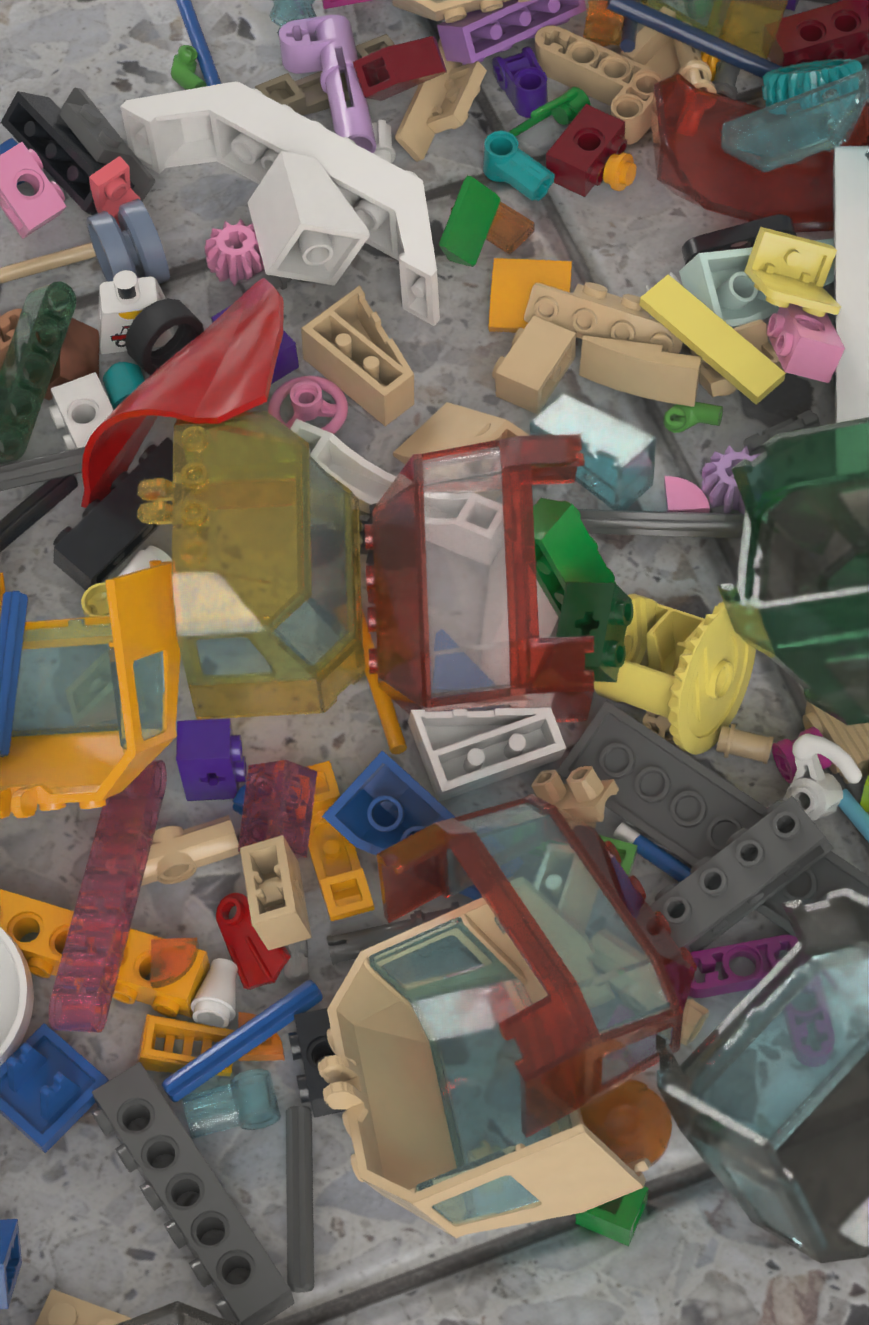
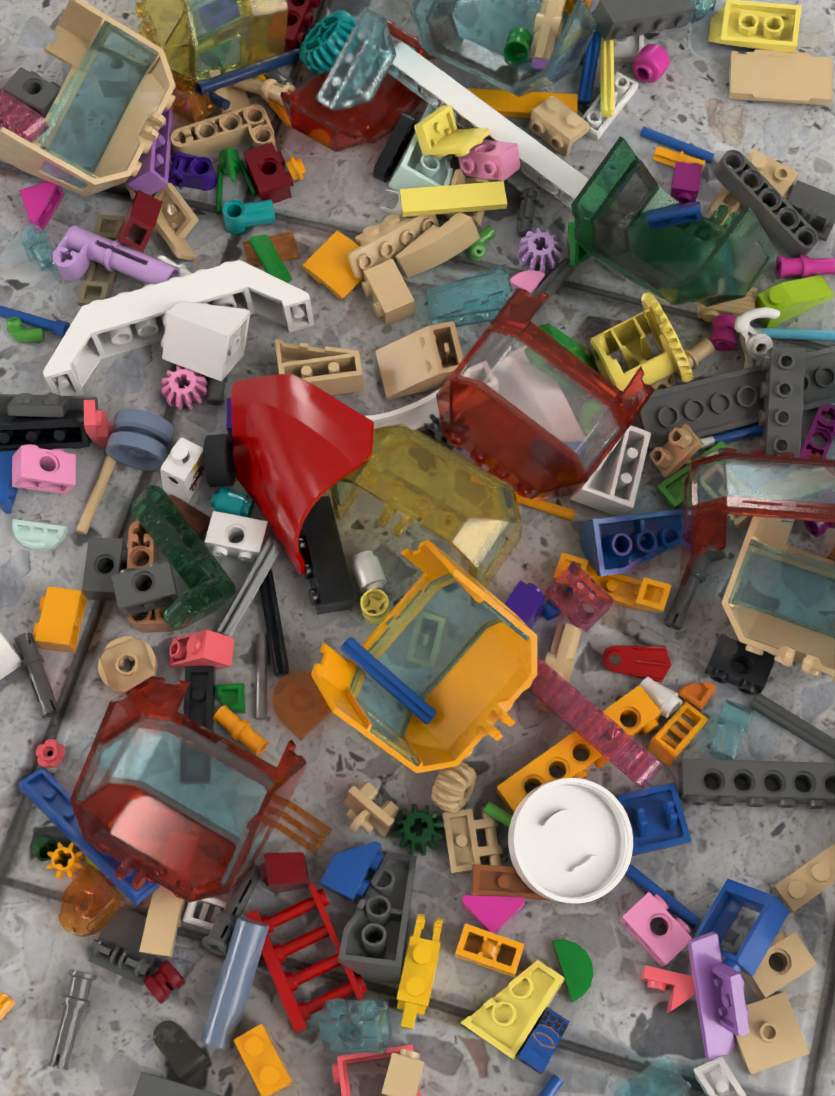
camera: 55 degrees left, 10 degrees up
(171, 959) = (635, 705): clear orange tile -> none
(241, 1041) = (701, 701): blue axle -> none
(275, 893) = (635, 626): tan brick -> none
(599, 612) = (612, 352): dark green brick -> none

